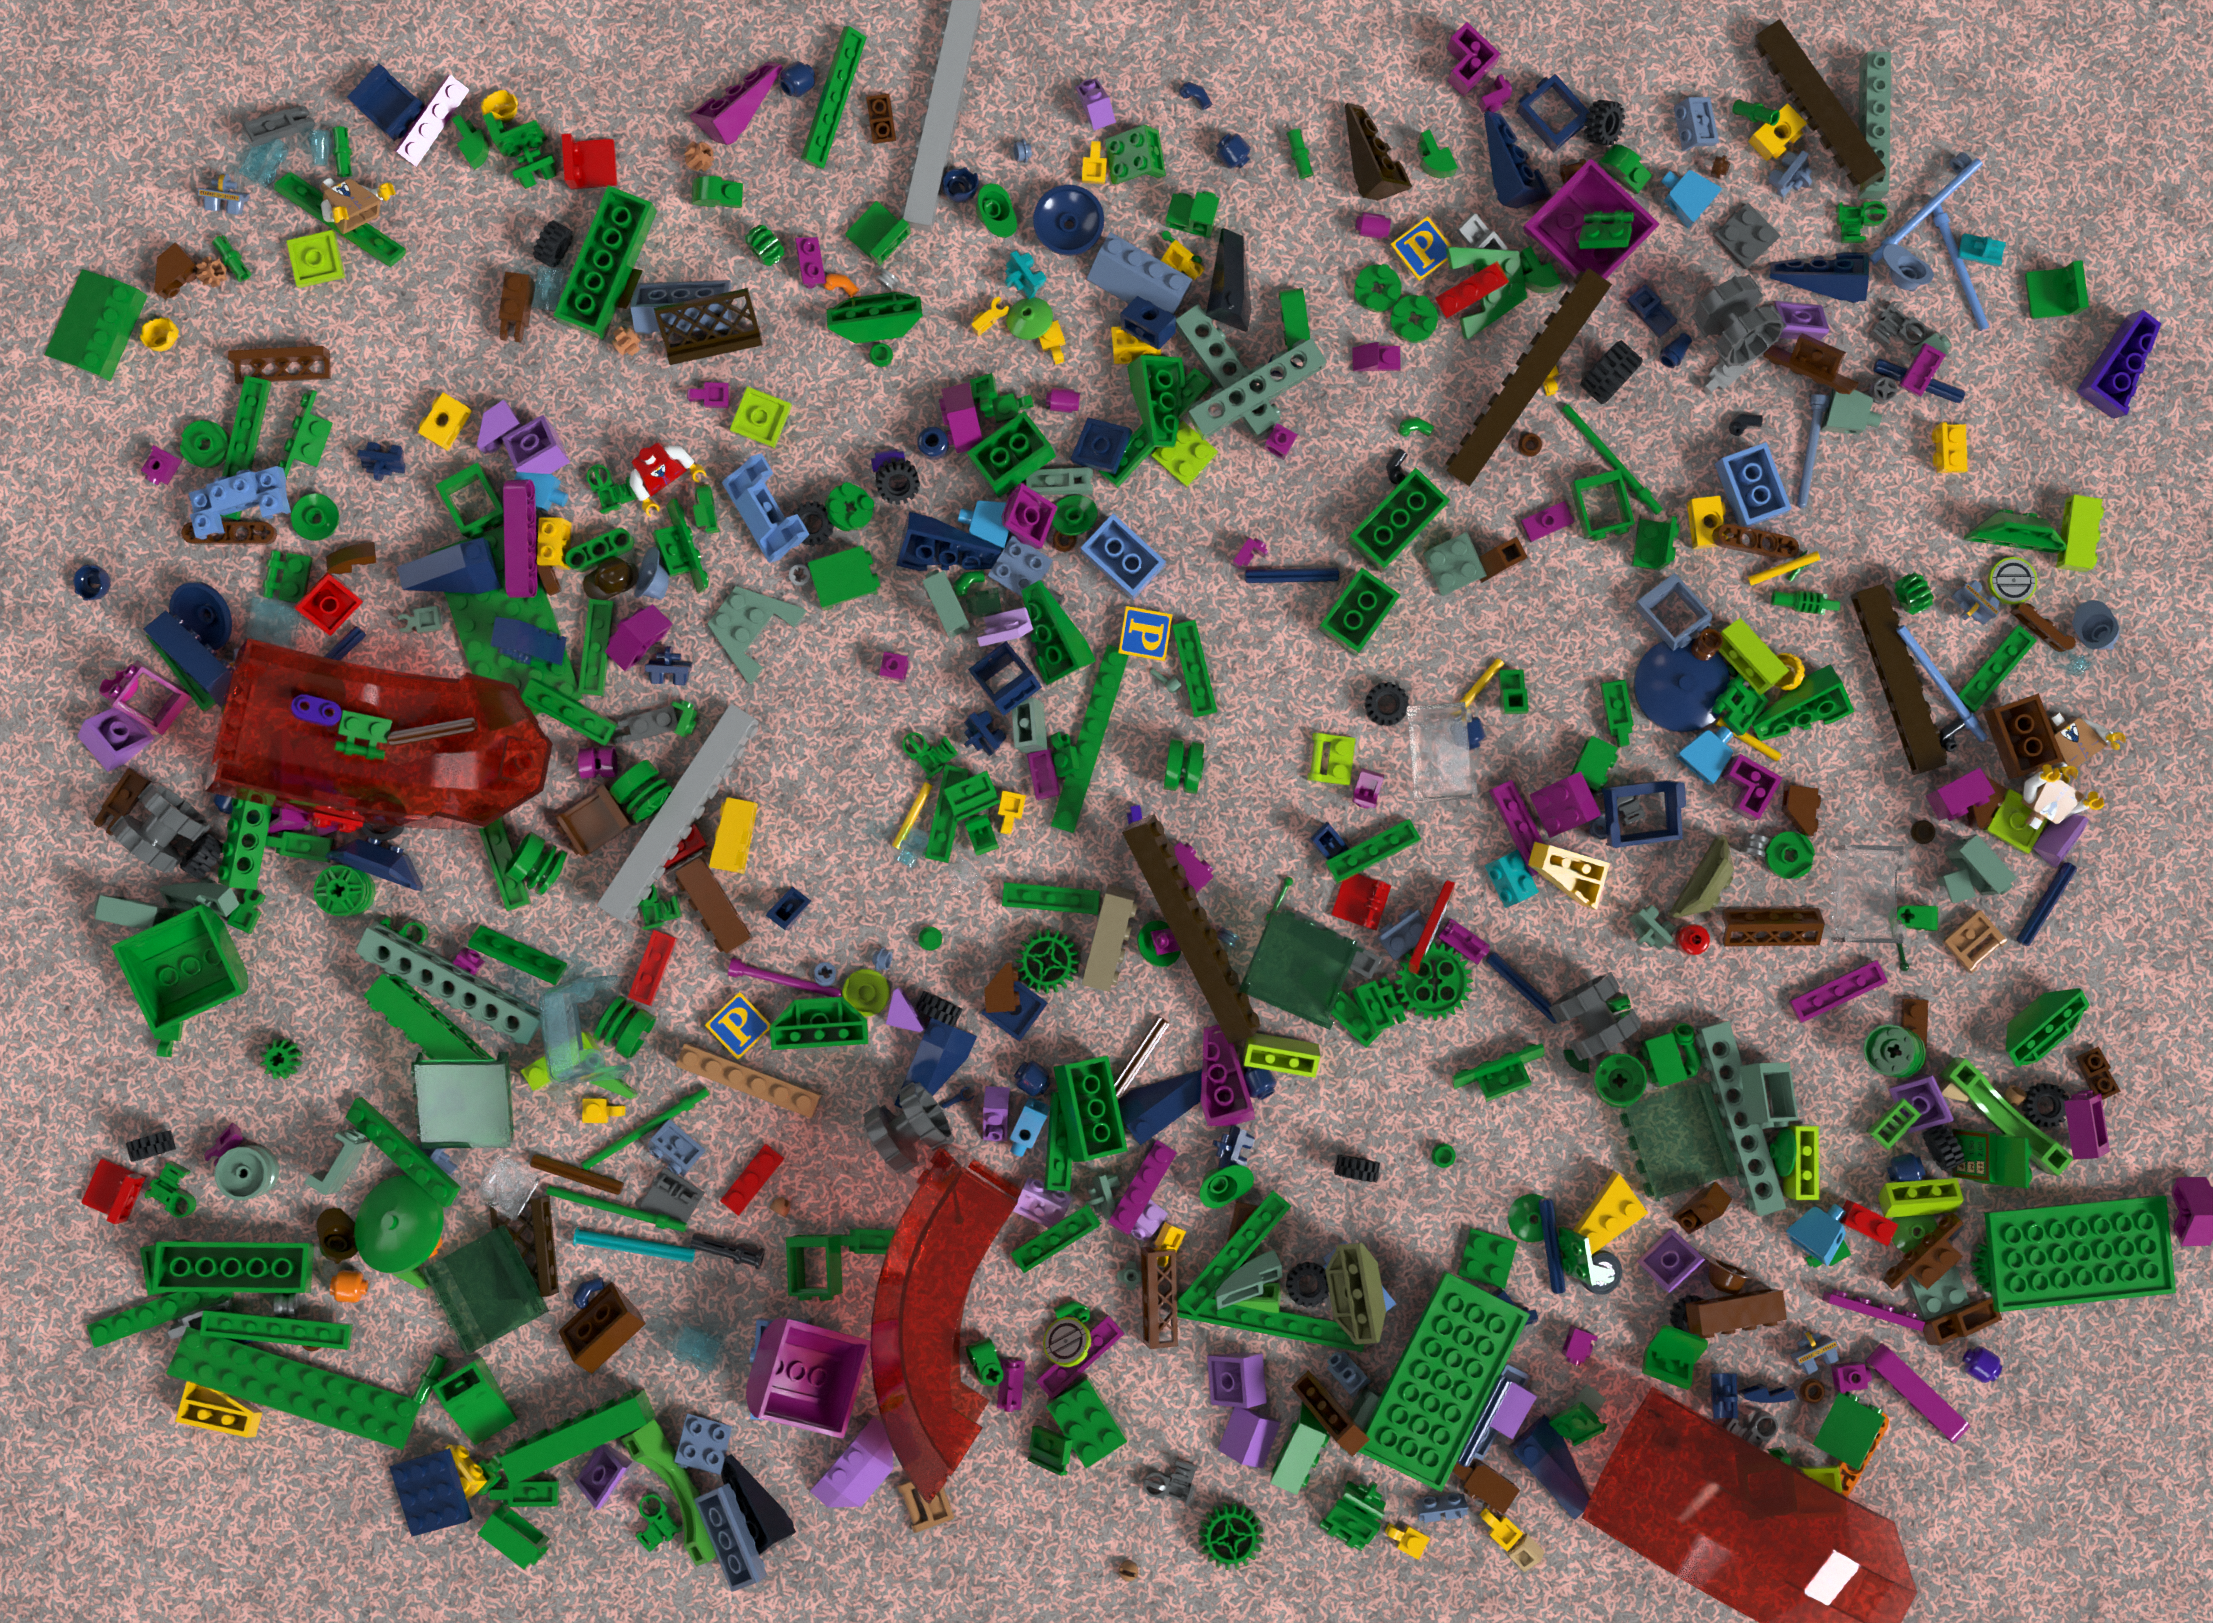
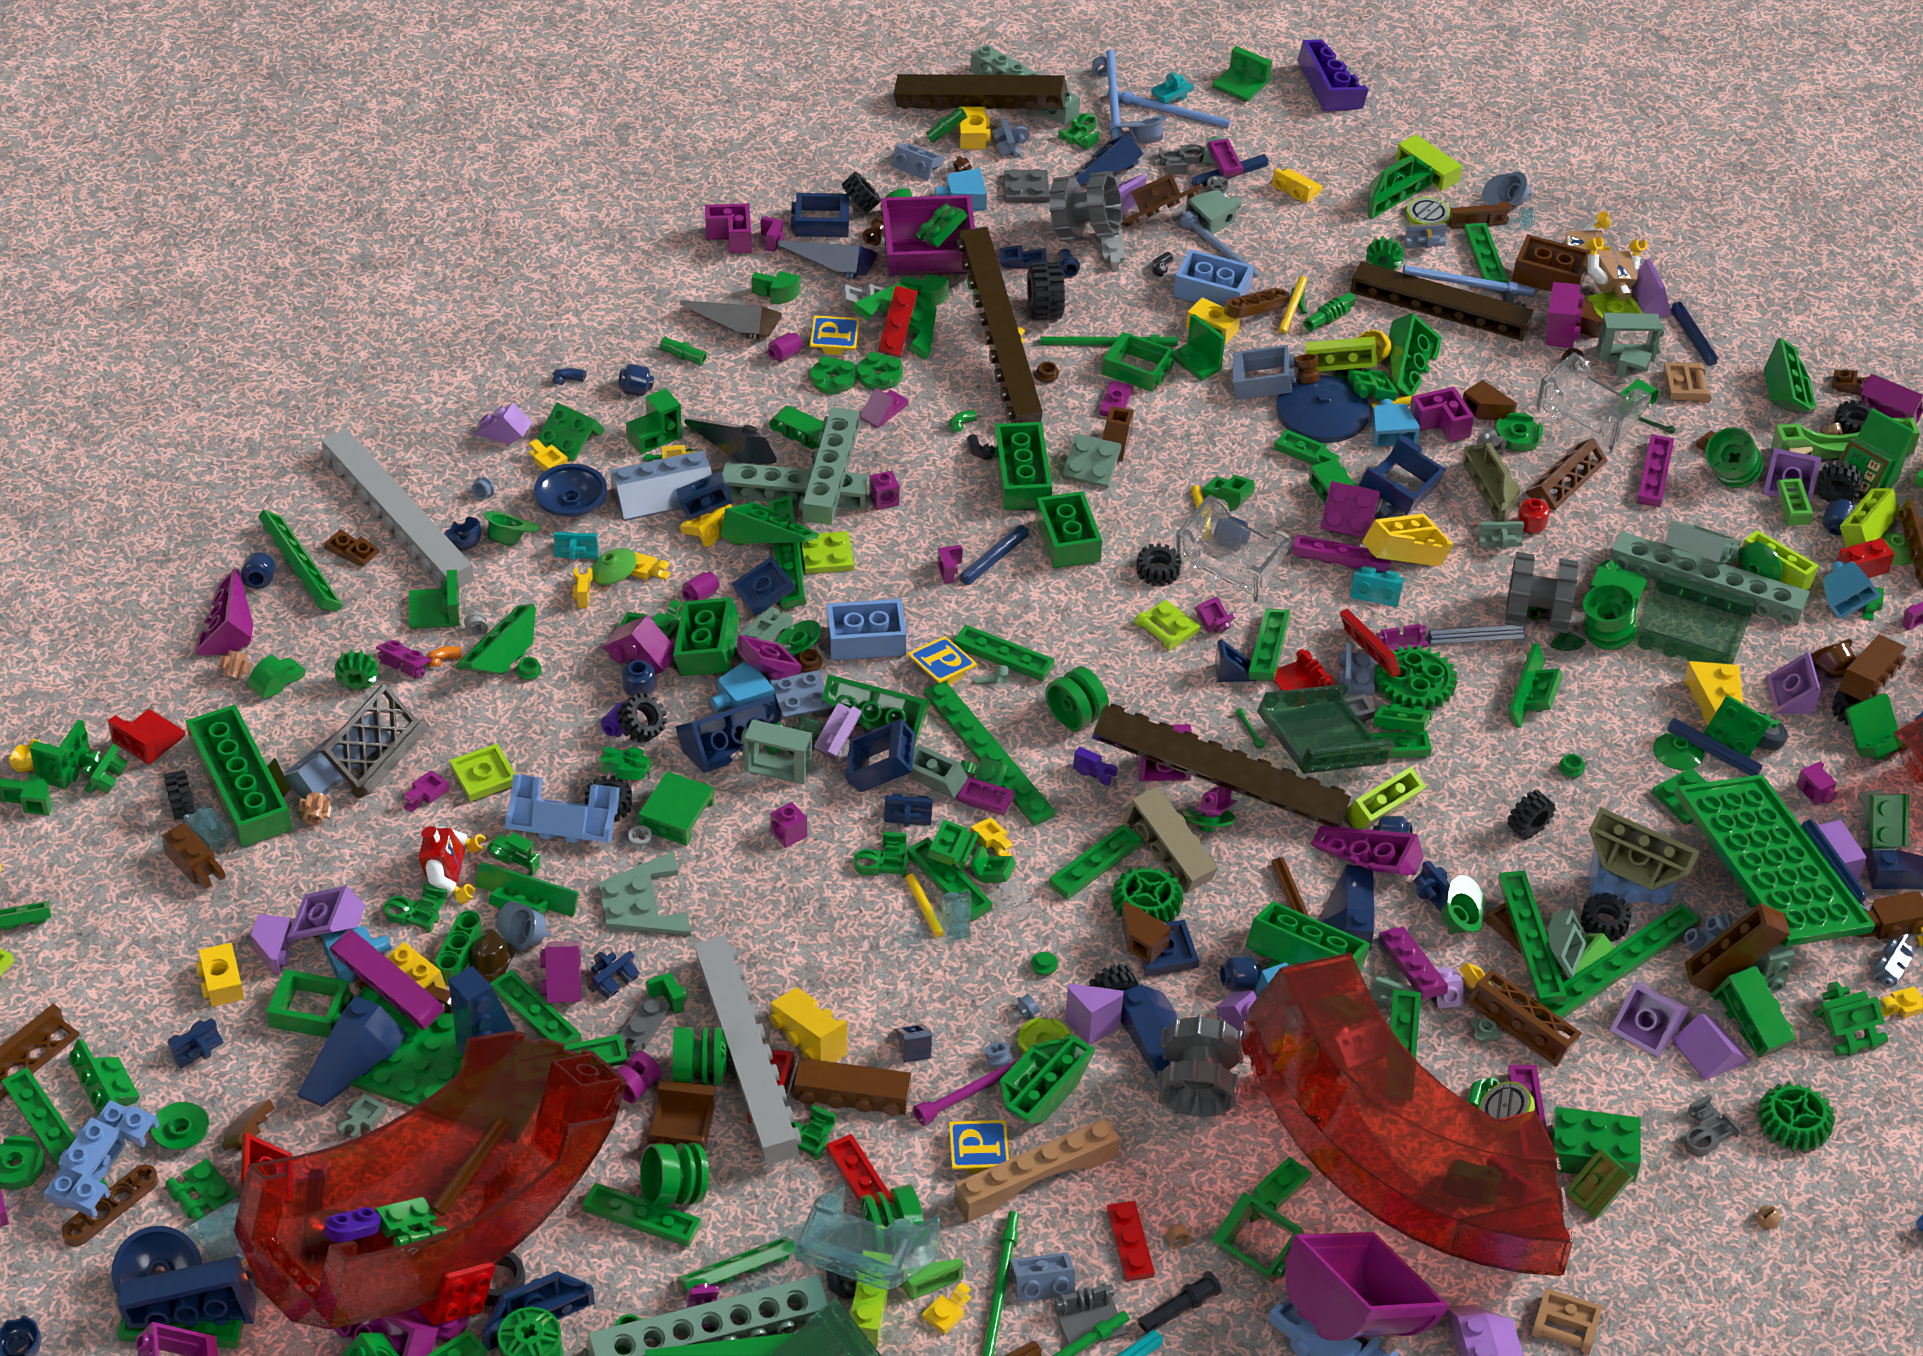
camera: 50 degrees left, 40 degrees down
(1703, 1208) = (1765, 643): reddish brown slope -> none

